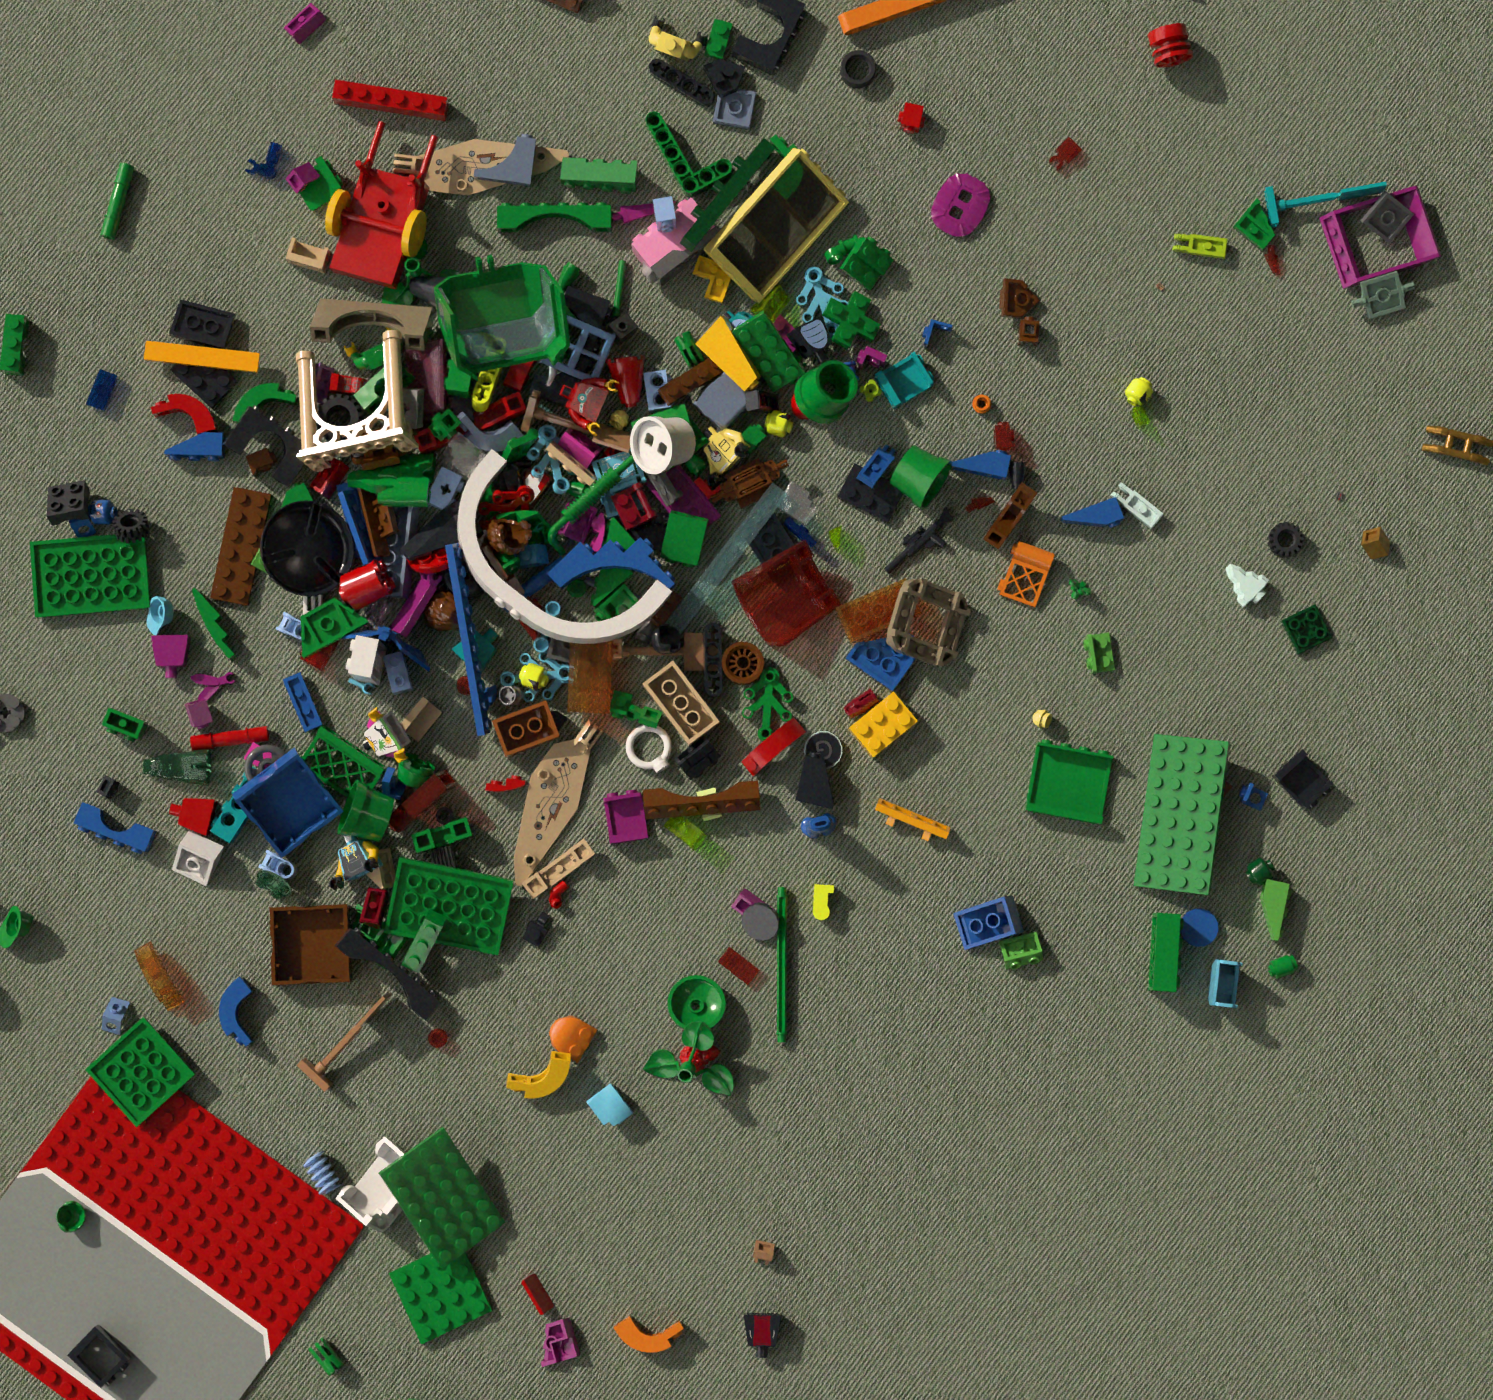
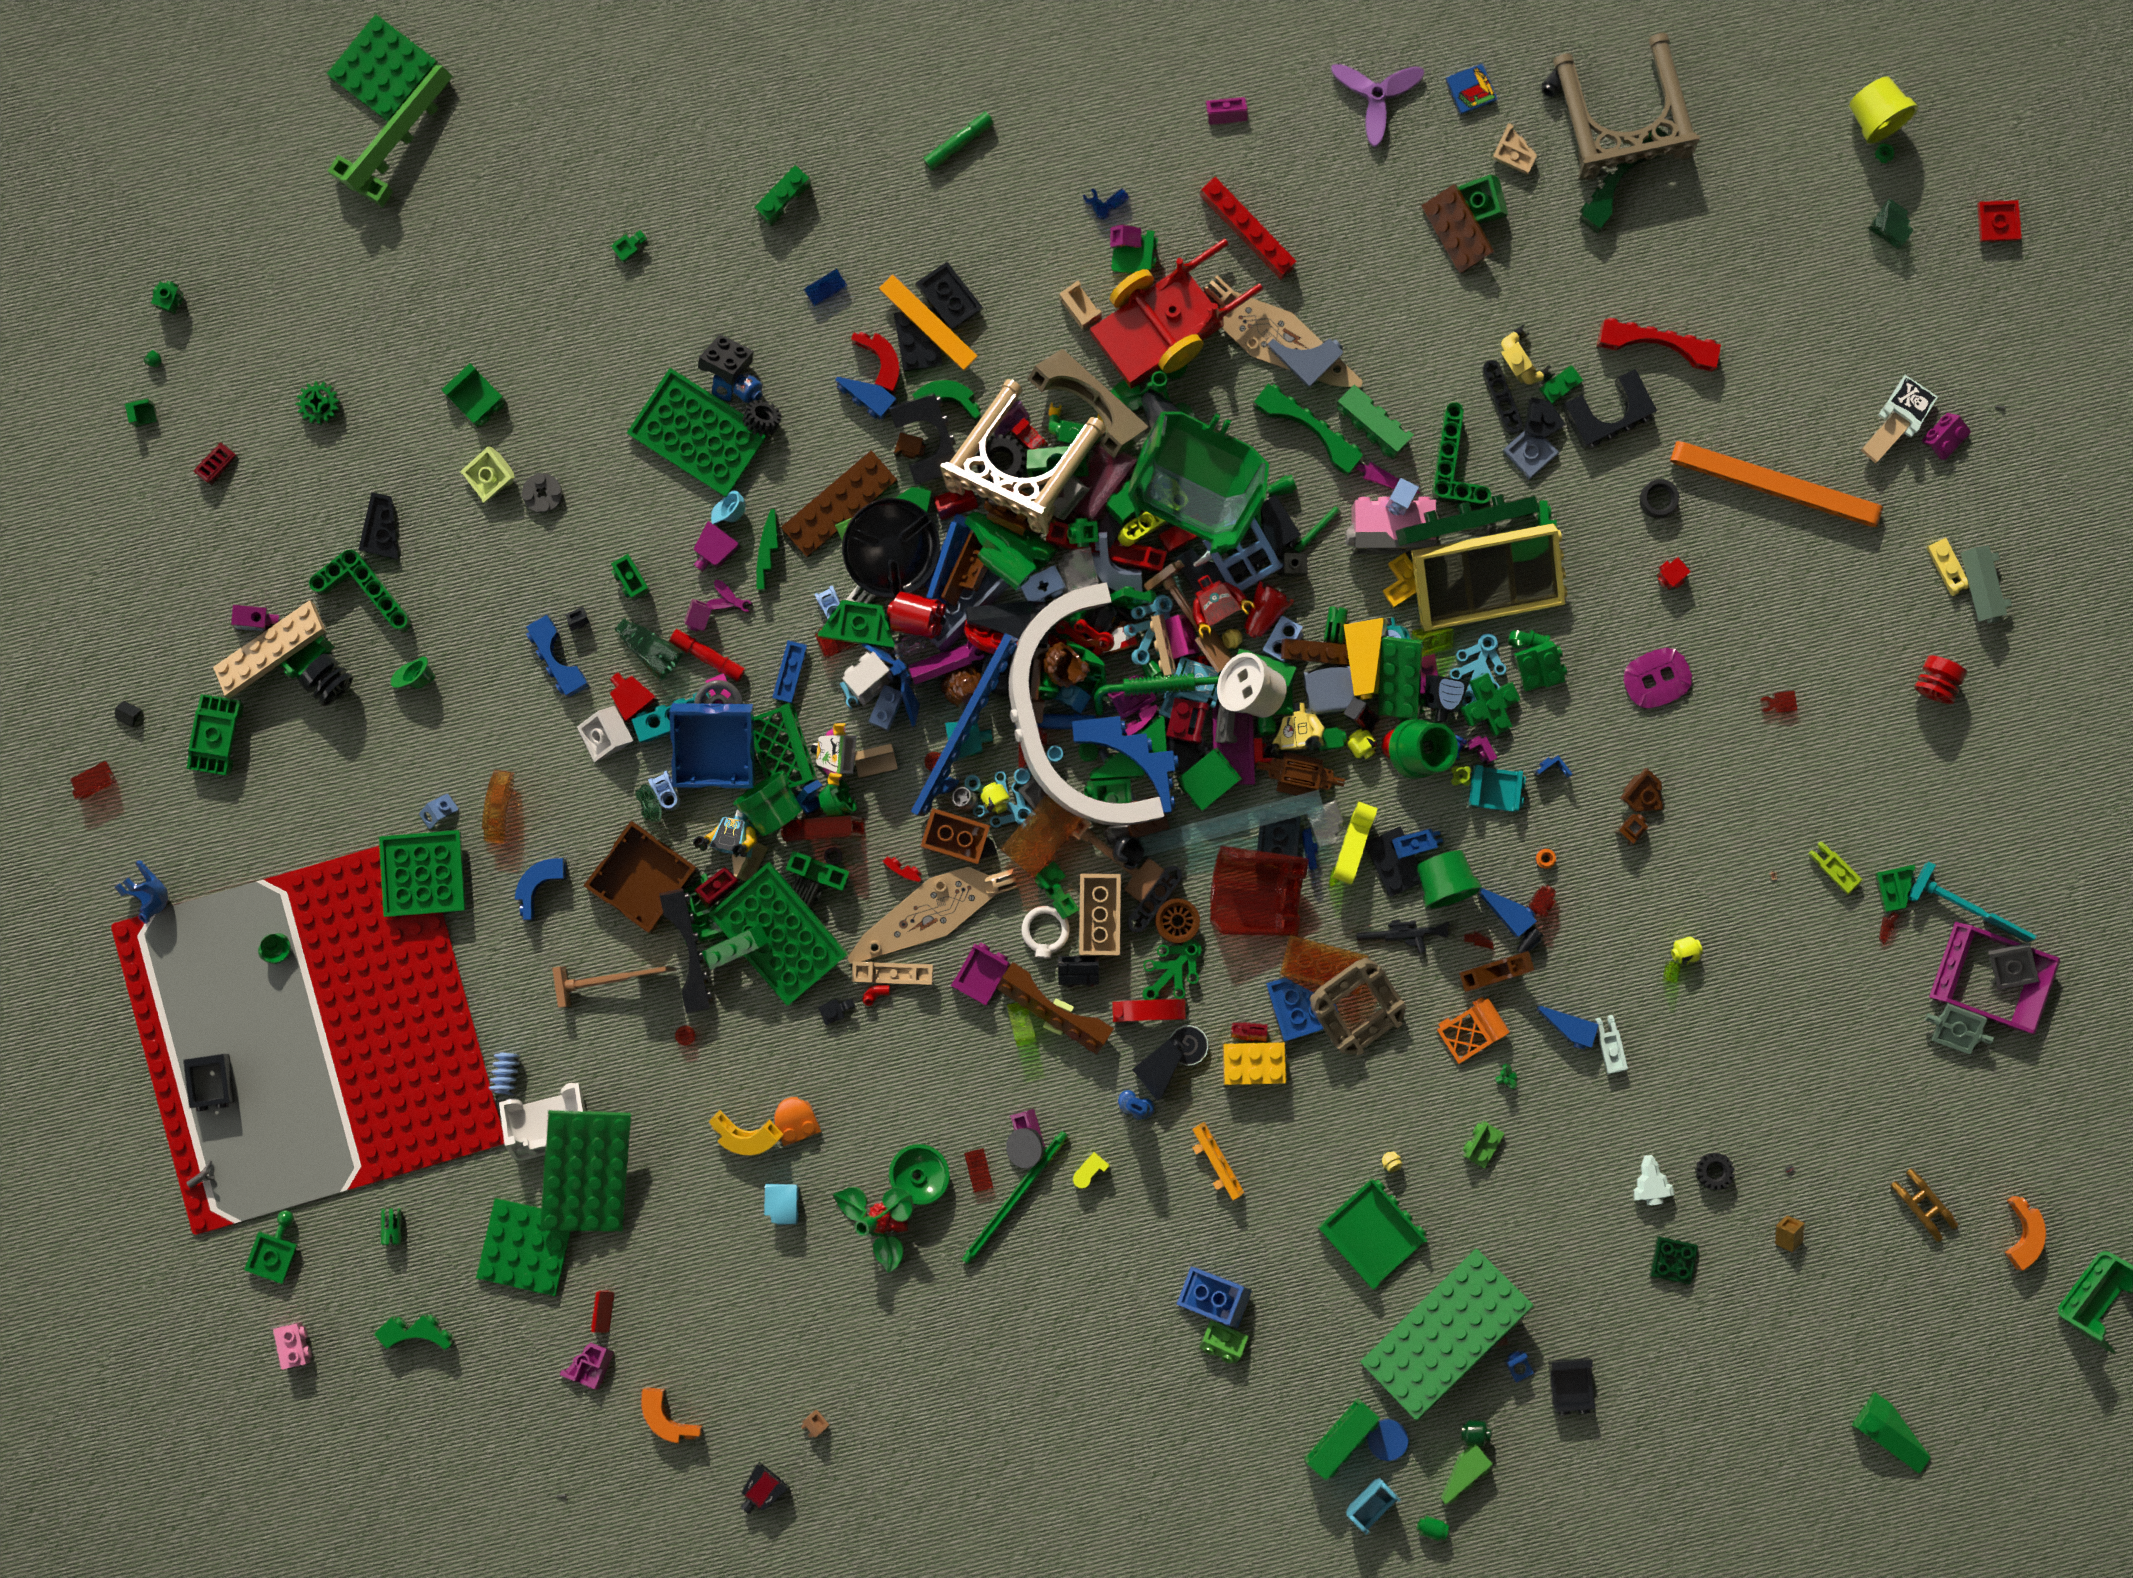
camera: 40 degrees right, 0 degrees up
(829, 501) = (1354, 842): none -> neon yellow beam

